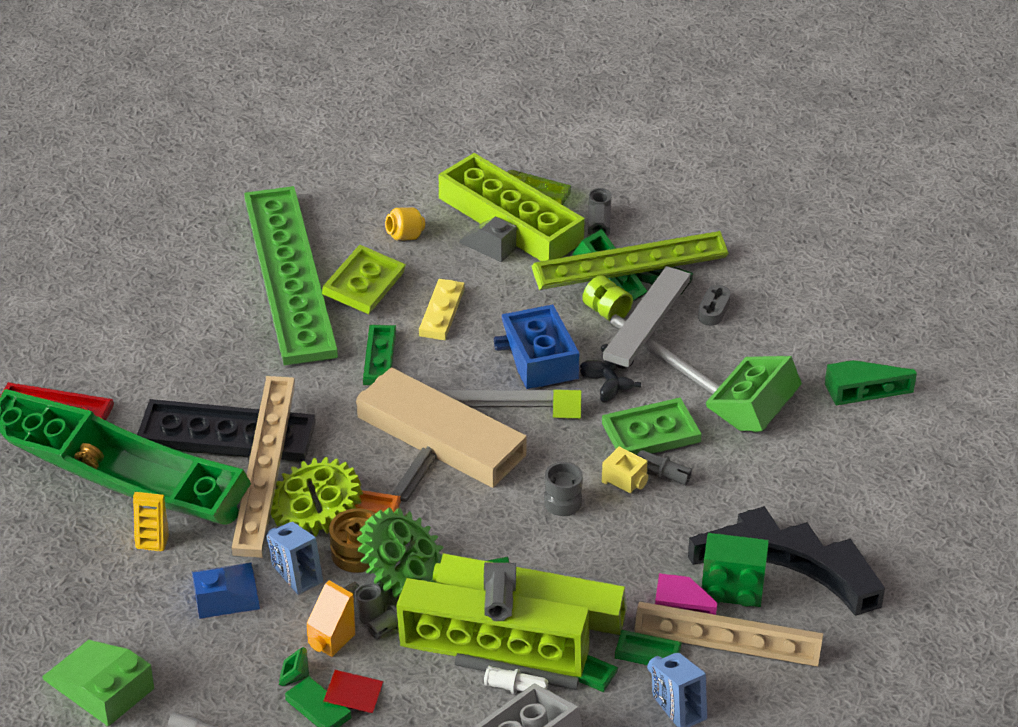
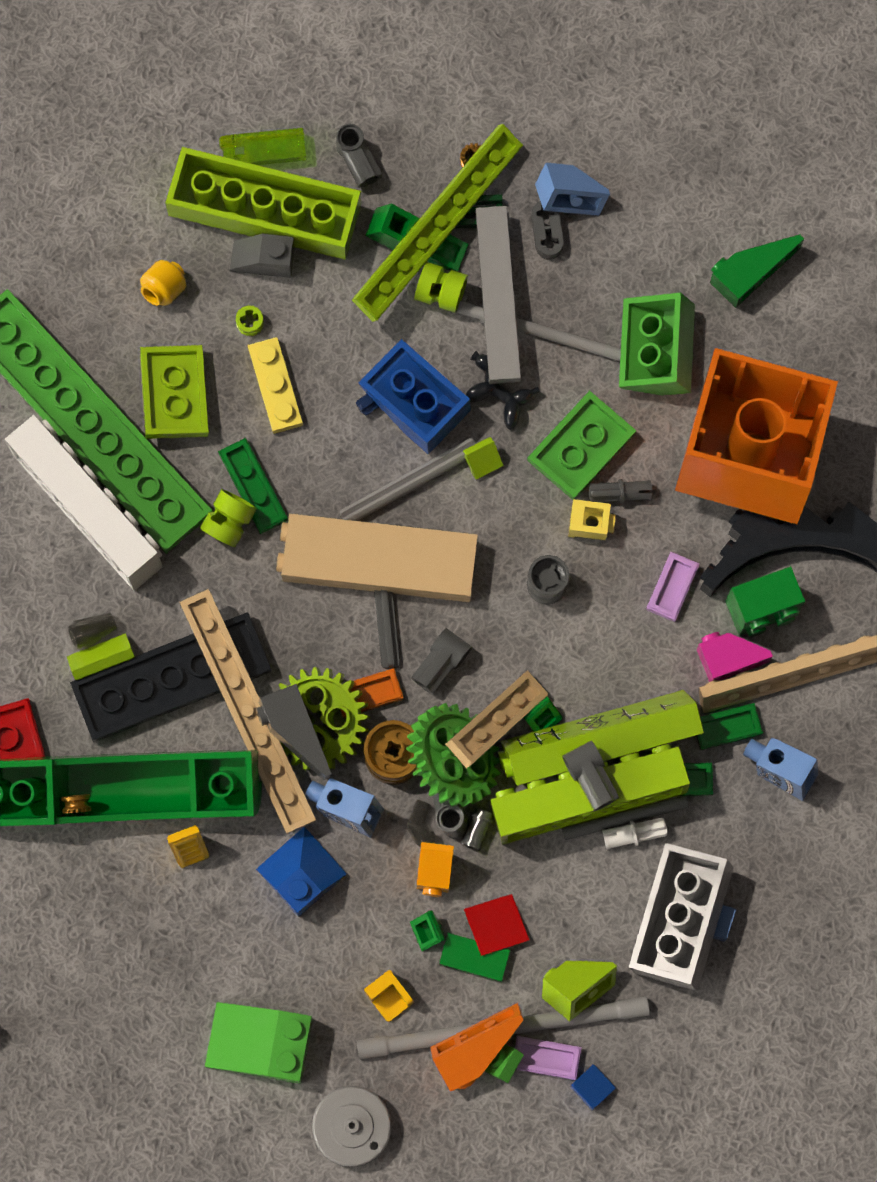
camera: 30 degrees left, 35 degrees up
(184, 396) = (100, 657): none -> lime tile
(191, 380) = (90, 630): none -> clear smoke cone
(226, 693) = (388, 996): none -> yellow panel
(249, 305) = (84, 503): none -> white brick
(288, 474) = (291, 725): none -> dark grey slope
(344, 355) = (227, 519): none -> lime wheel
(435, 541) = (496, 719): none -> tan plate
(448, 502) = (445, 654): none -> dark grey piece
(451, 268) = (257, 325): none -> lime bush
(664, 543) = (672, 586): none -> lavender tile
(747, 286) = (570, 190): none -> medium blue slope
(792, 451) = (756, 436): none -> orange brick

